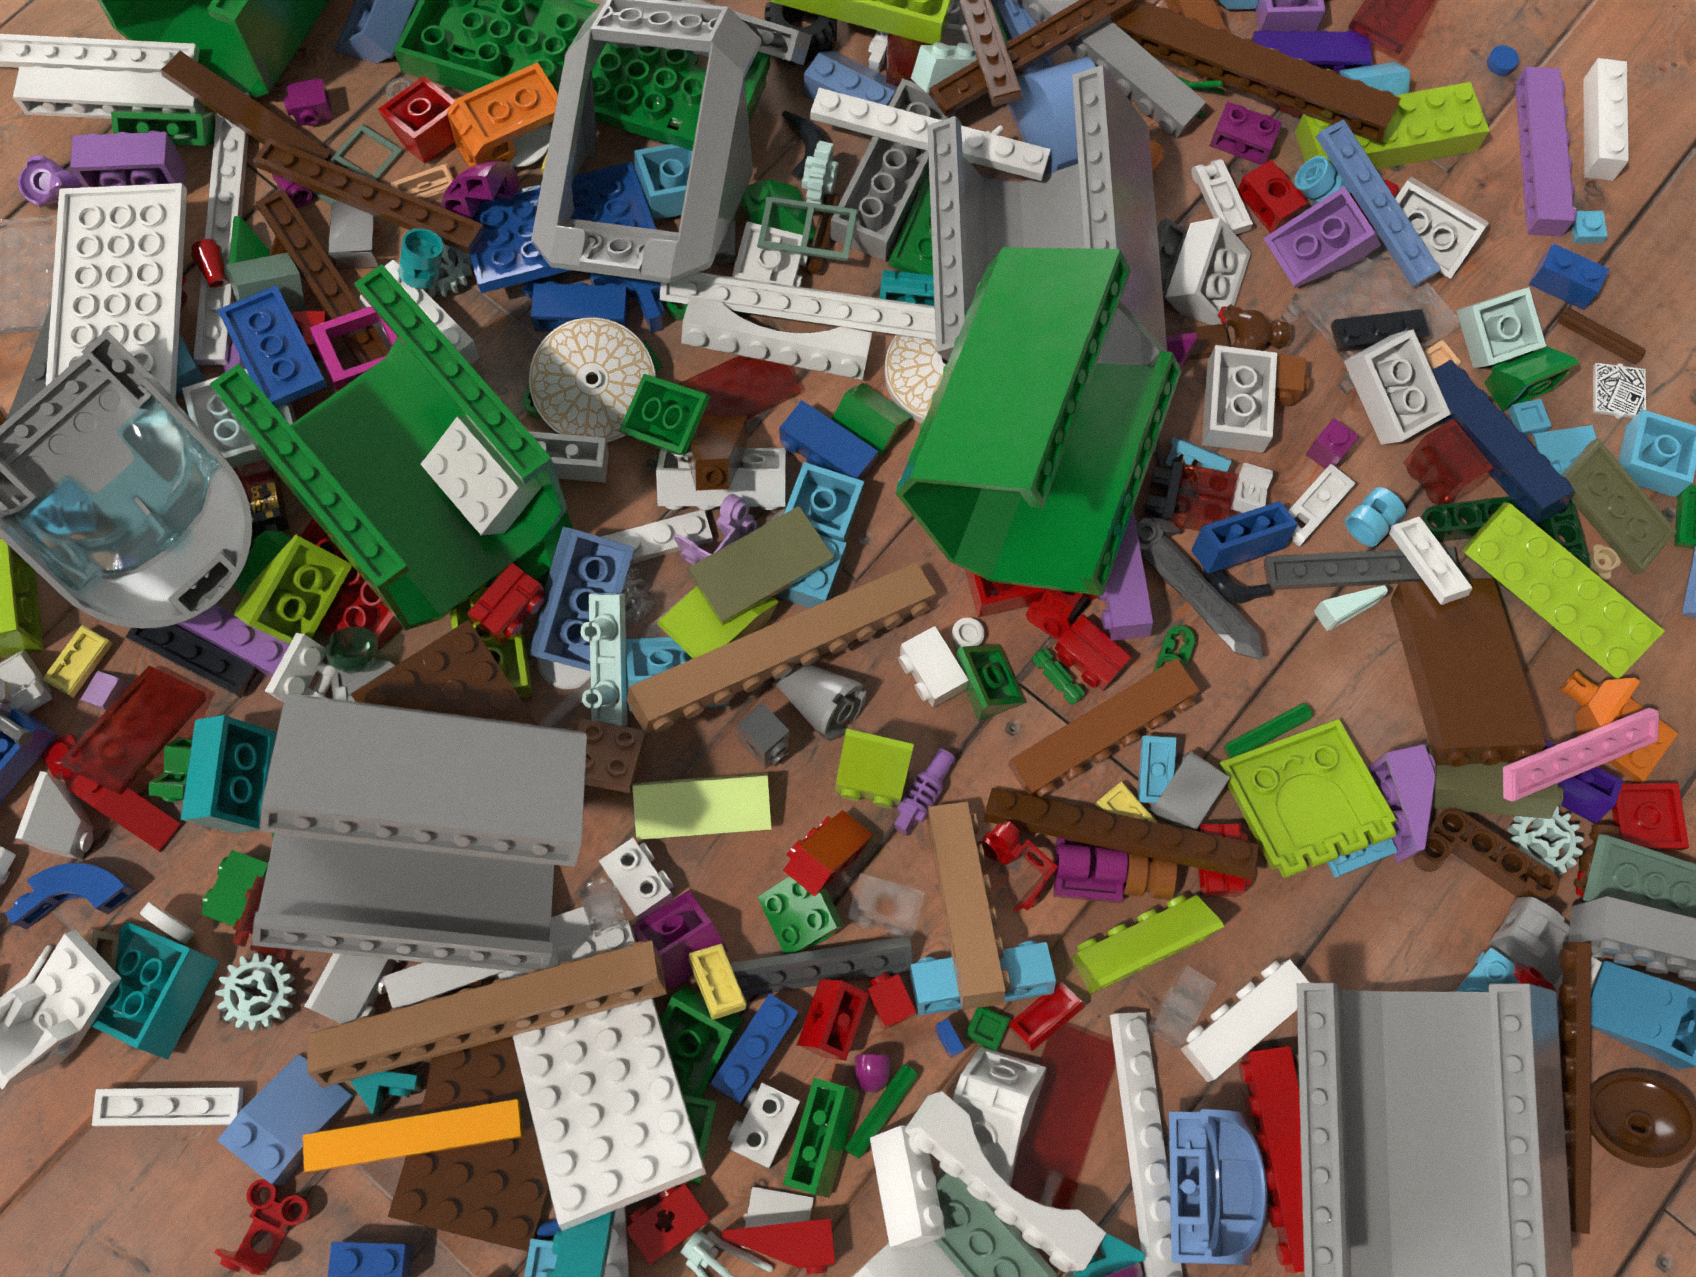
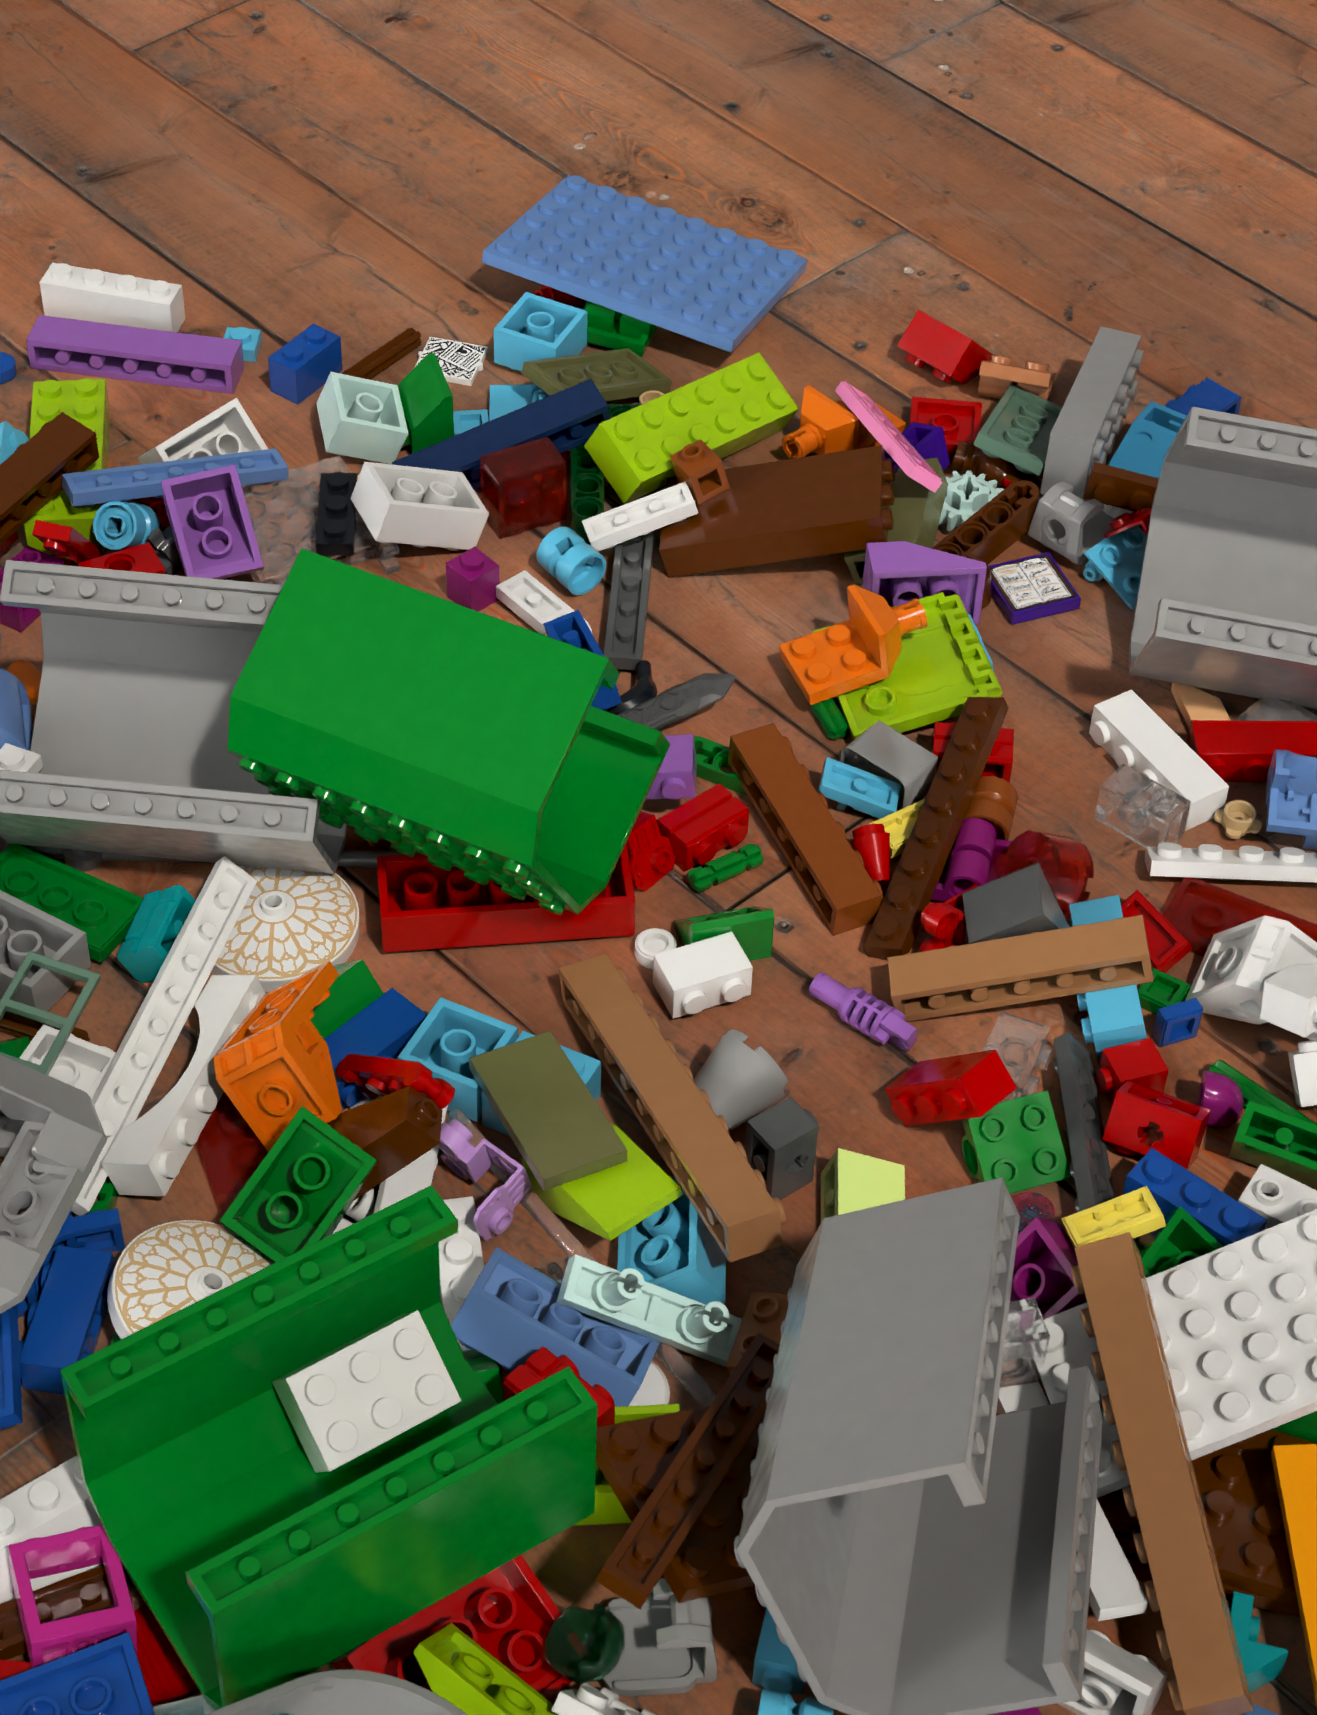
camera: 80 degrees left, 25 degrees down
(421, 682) = (691, 1478): none -> reddish brown plate
(750, 929) = (1031, 1206): none -> clear pink tile
(763, 459) = (385, 1075): none -> red plate
(780, 365) = (281, 1059): none -> orange bracket
(873, 768) = (839, 1038): lime slope -> none
(1017, 893) = (1012, 906): none -> dark grey slope
(1074, 920) = (1062, 859): none -> clear red brick
(1088, 785) = (874, 848): none -> red cone
(1144, 943) = (1065, 800): lime slope -> none
(1197, 1083) = (1238, 819): none -> tan plate
(1283, 144) = (66, 542): none -> red plate
(1308, 747) = (854, 650): none -> orange plate
(1340, 609) = (679, 603): light aqua slope -> none
(1449, 905) = (1032, 588): none -> tile
(1488, 597) = (700, 470): none -> dark orange brick

